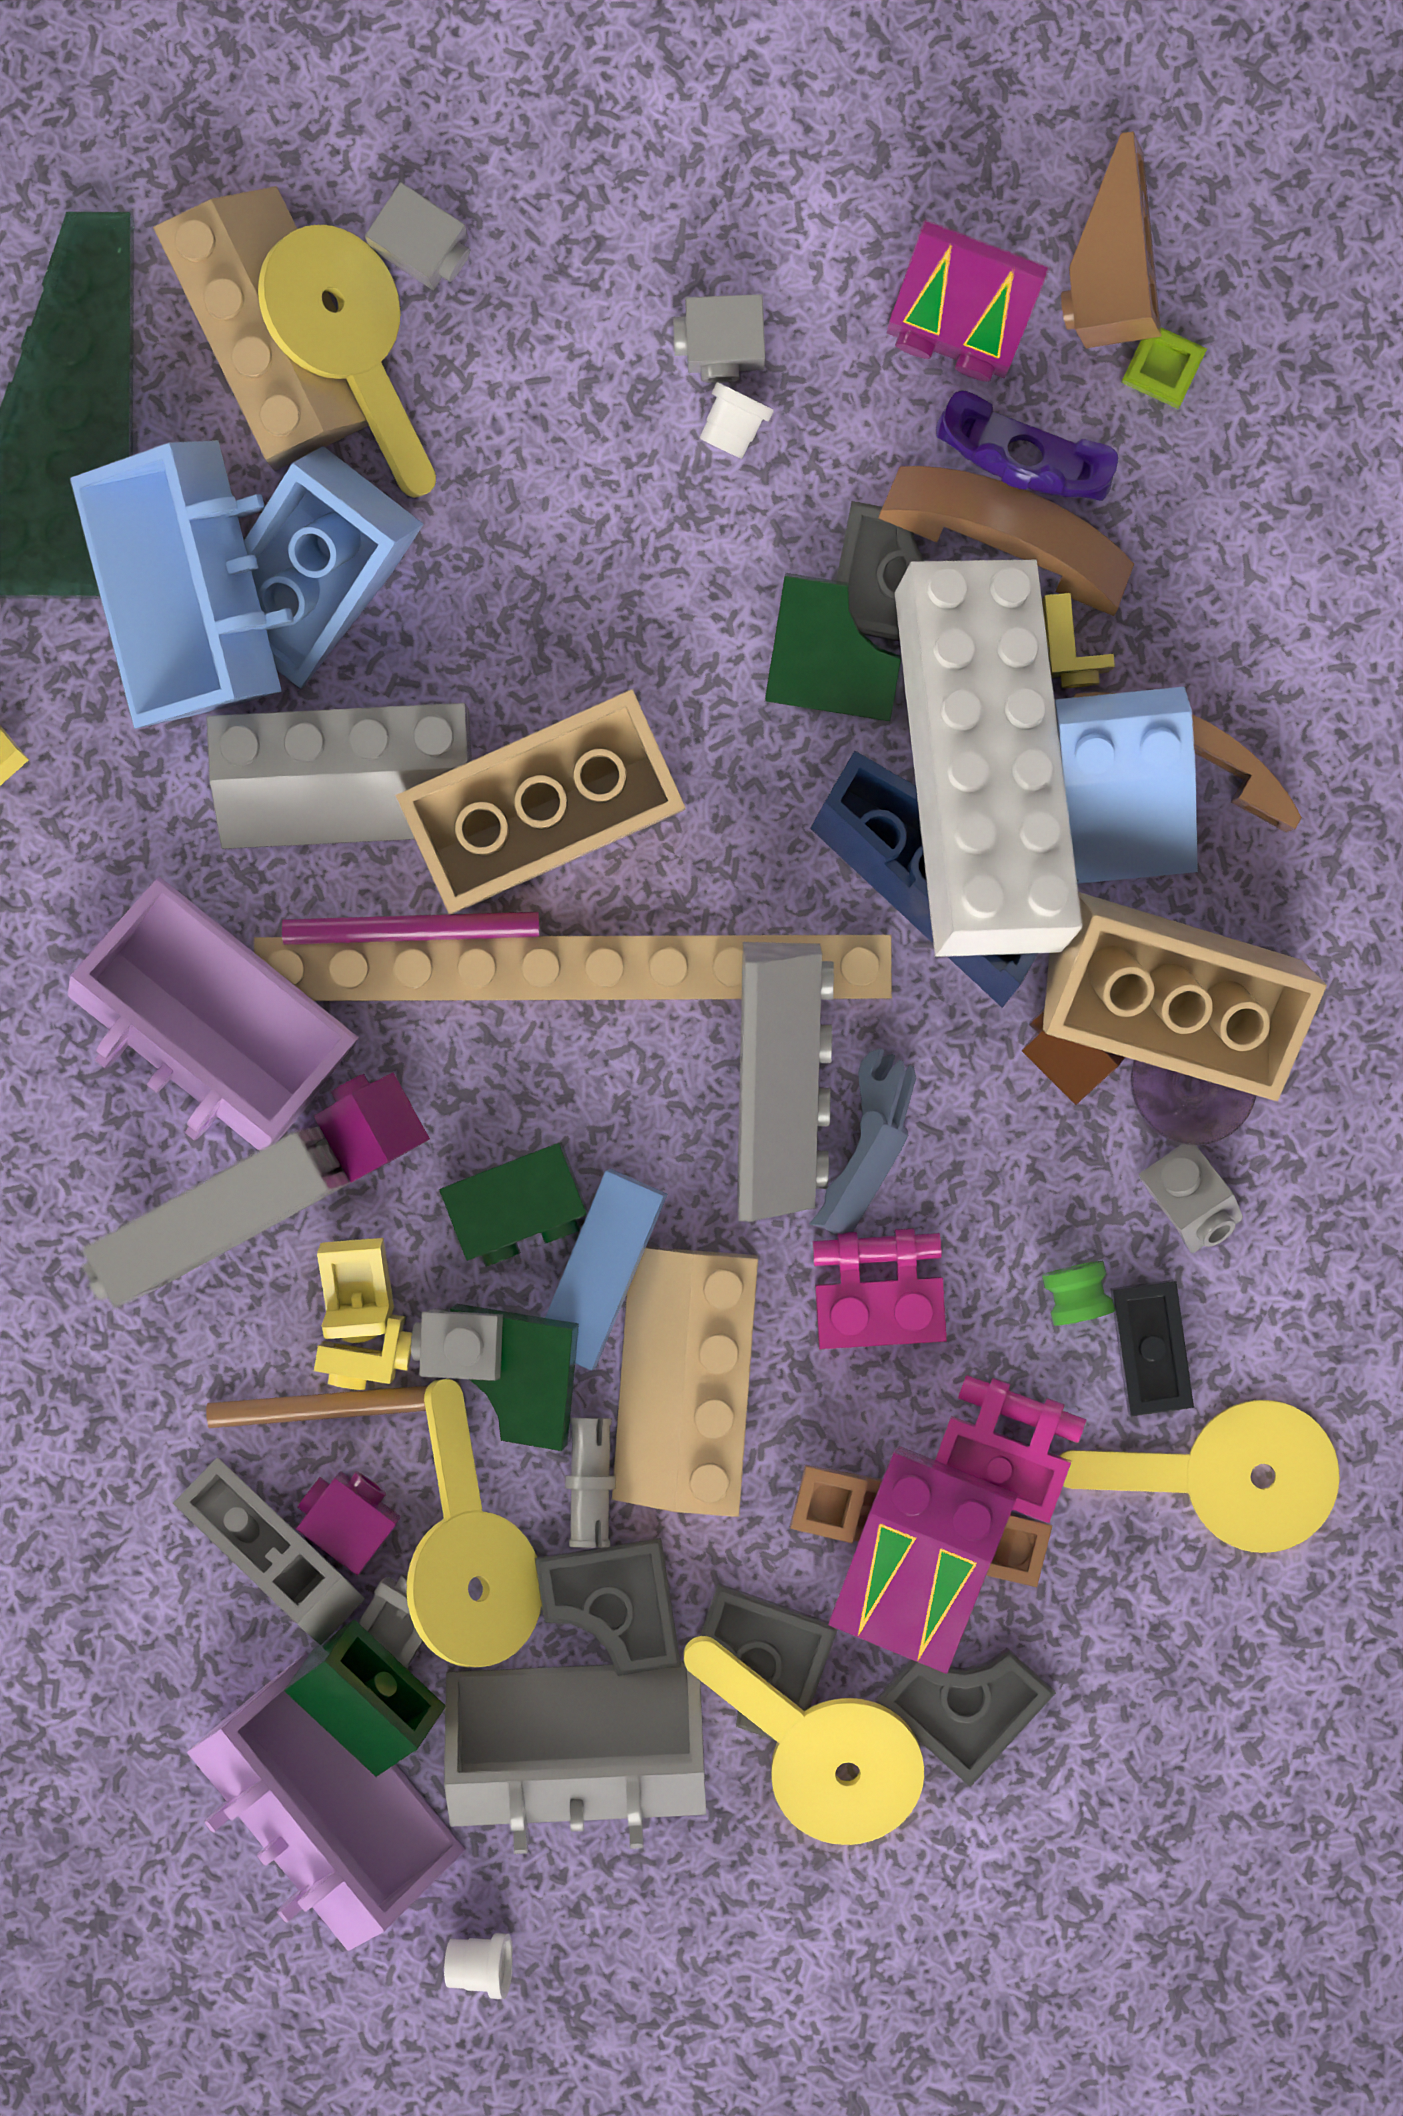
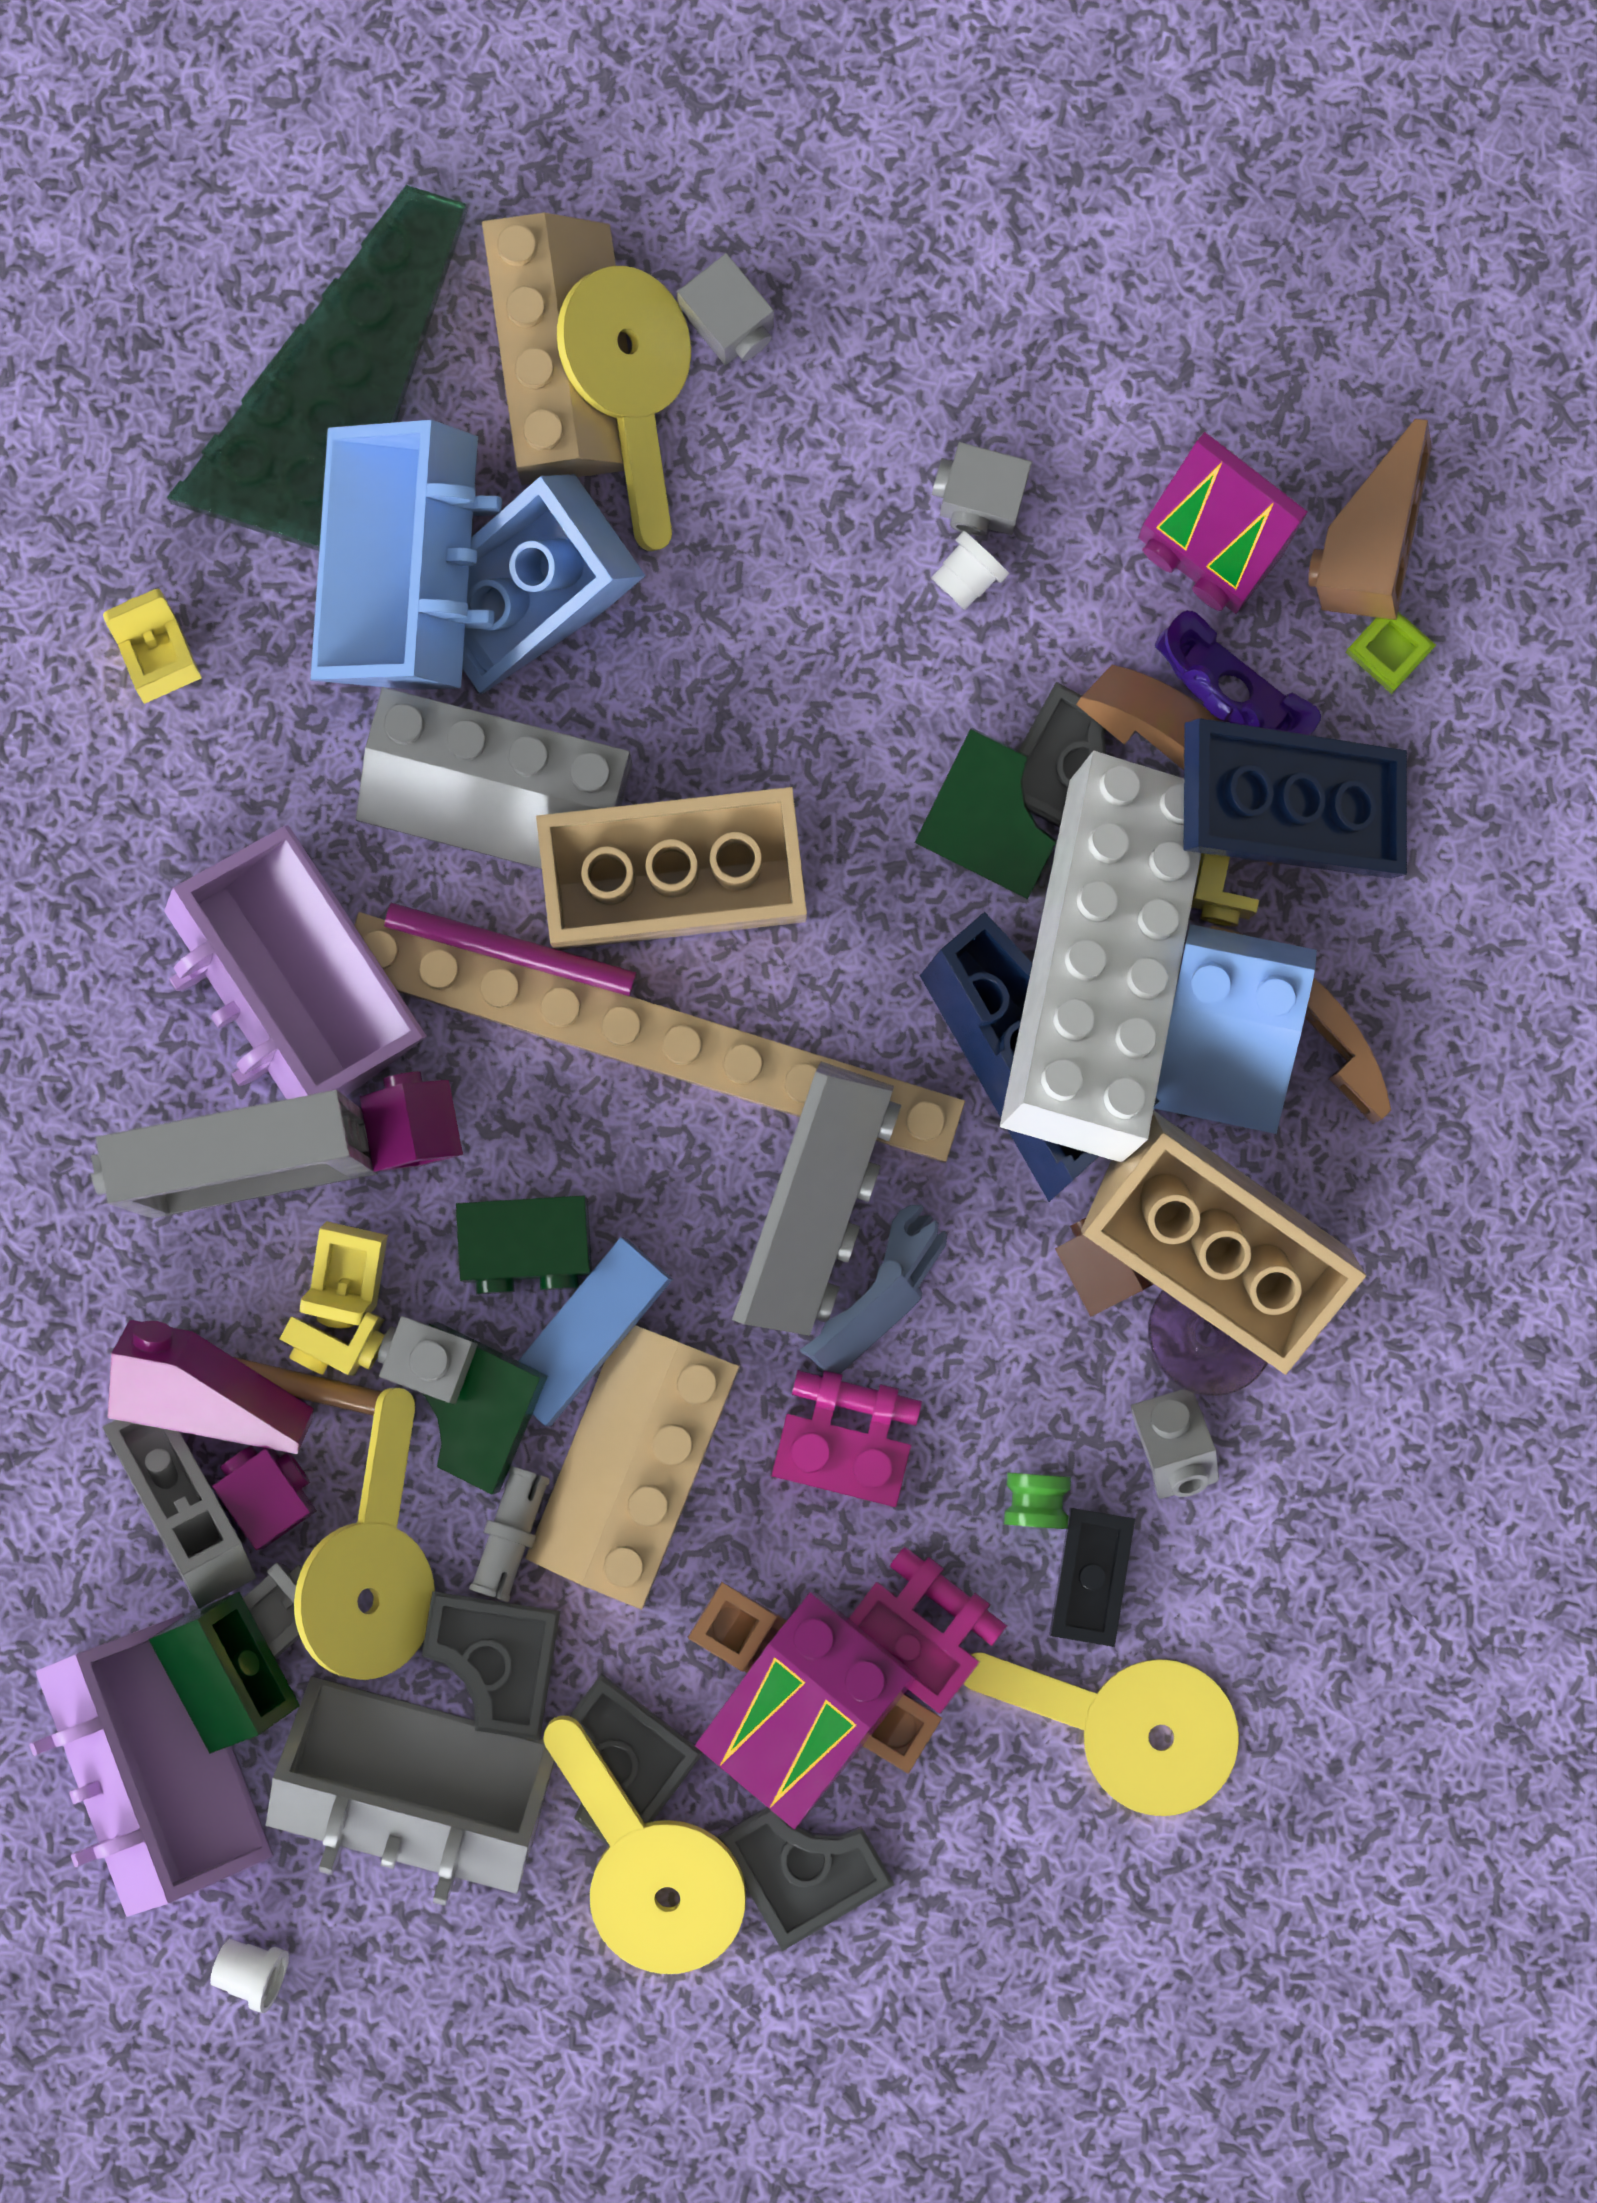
camera: 10 degrees right, 5 degrees down
(251, 1441) = (193, 1387): none -> slope
(1118, 546) = (1294, 799): none -> dark blue plate

